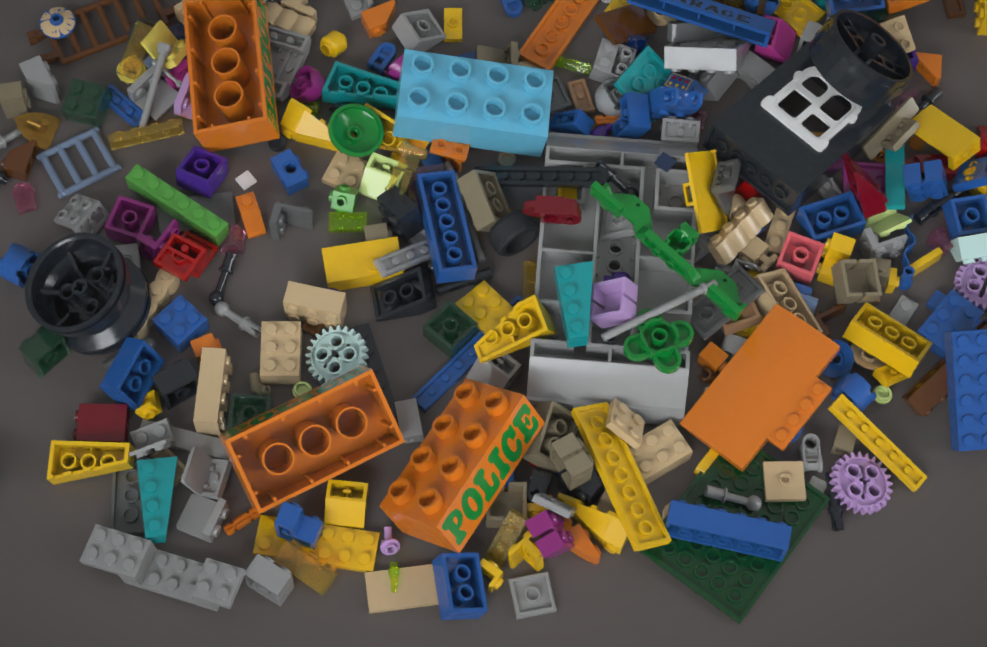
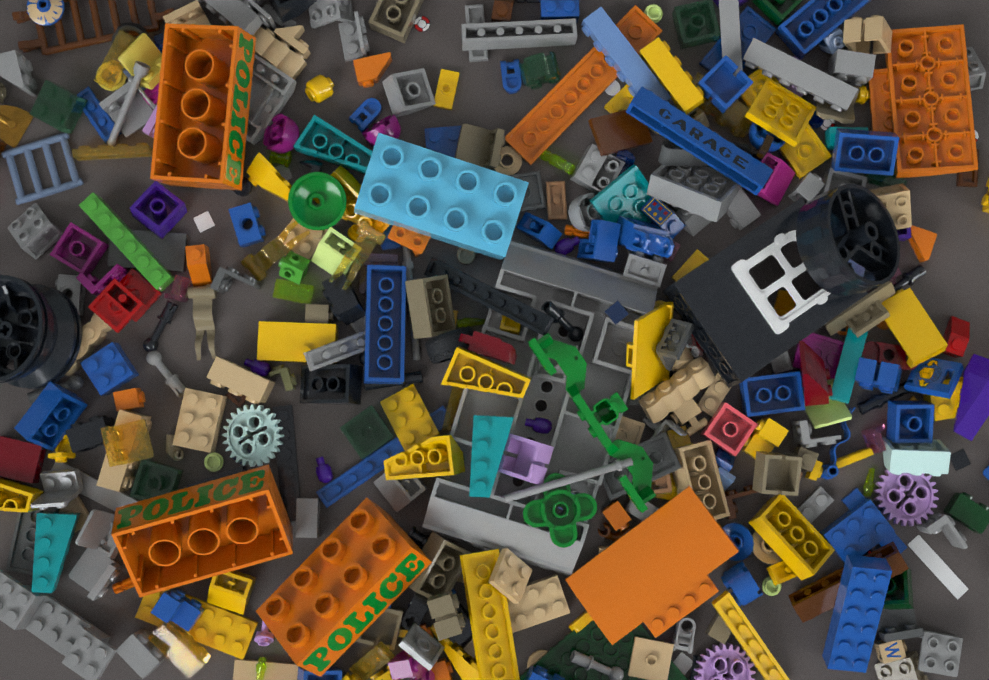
camera: 15 degrees right, 20 degrees up
(219, 371) = (127, 443): none -> clear yellow bracket
(264, 260) = (203, 316): none -> dark tan flag
(321, 187) = (272, 252): none -> clear yellow flag
(361, 299) = (288, 379): none -> olive bracket
(414, 377) = (323, 470): none -> dark purple cylinder
(555, 233) = (482, 374): none -> yellow wedge
(741, 191) = (696, 350): none -> light grey piece
(947, 283) = (869, 485): none -> clear neon green piece

